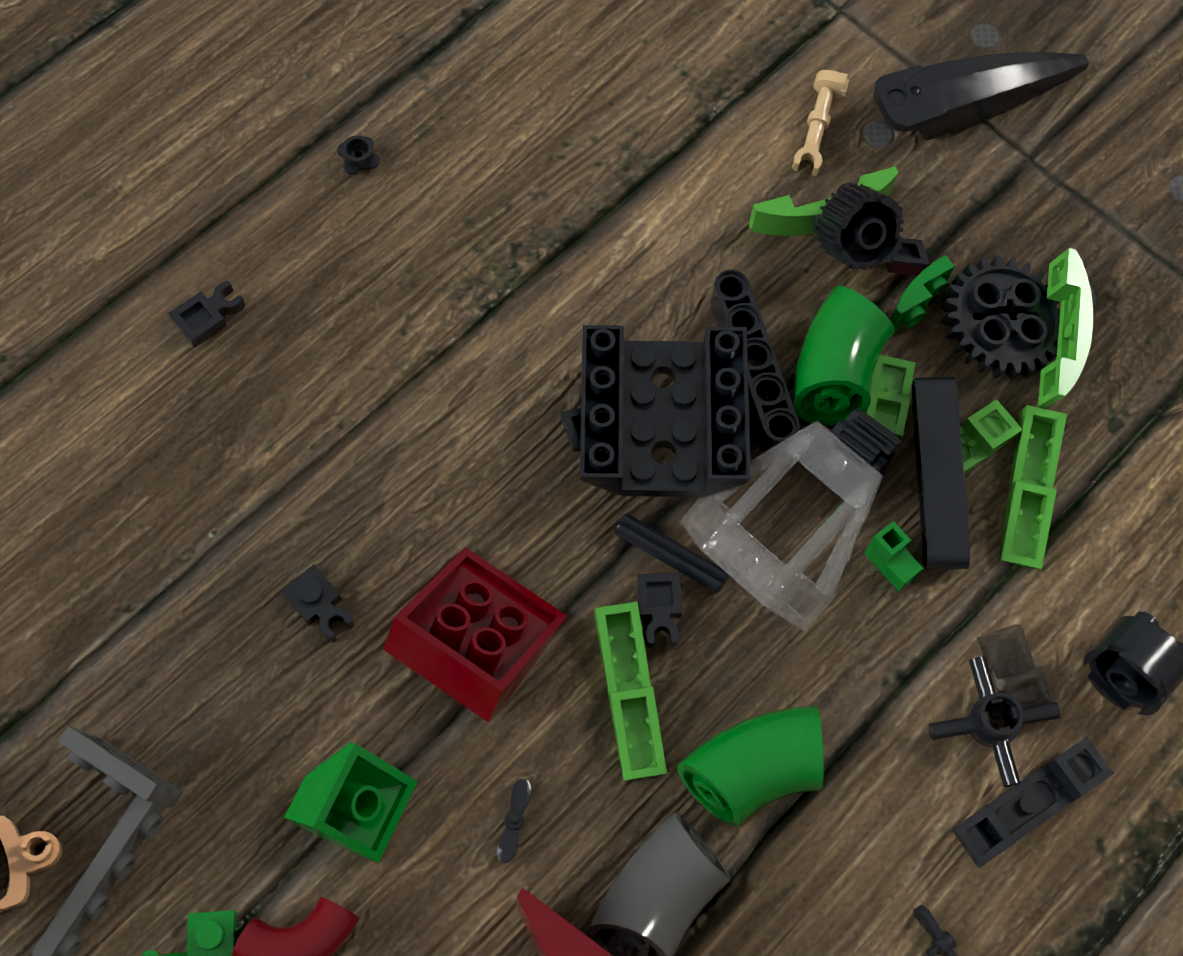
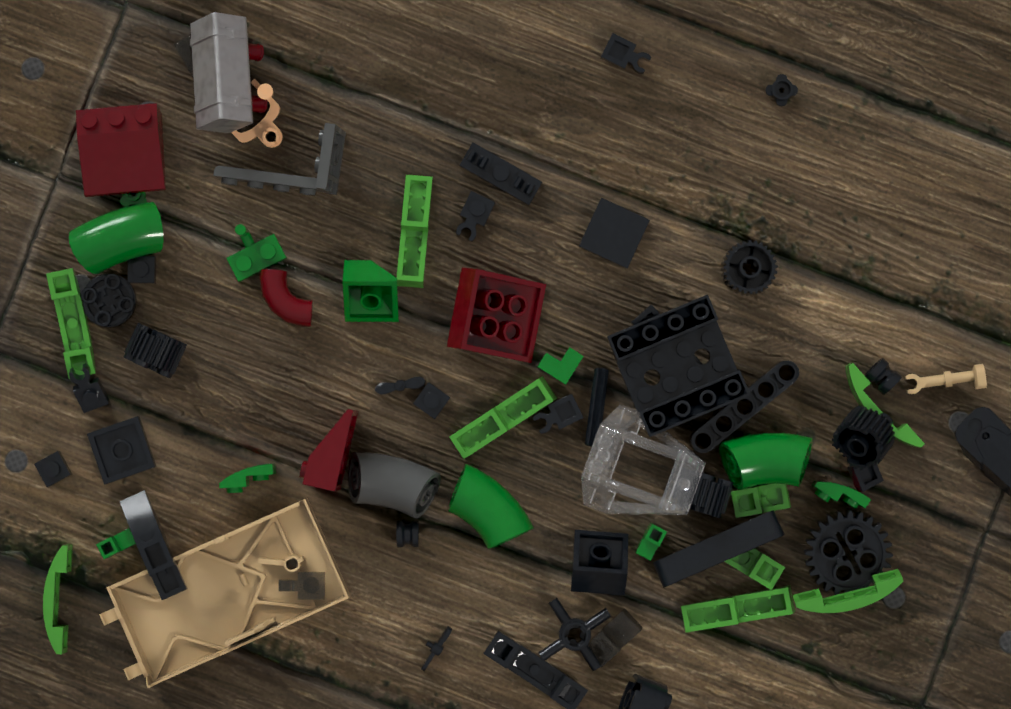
camera: 75 degrees right, 20 degrees up
(278, 542) = (500, 174): none -> black plate
(296, 697) = (414, 231): none -> bright green slope
(439, 429) = (614, 233): none -> black tile
(558, 783) = (431, 400): none -> black plate
(569, 277) = (735, 276): none -> black brick
(595, 577) = (562, 369): none -> green piece
(748, 907) = (407, 533): none -> black wheel
(789, 181) = (878, 371): none -> black wheel
(900, 640) = (599, 562): none -> black slope

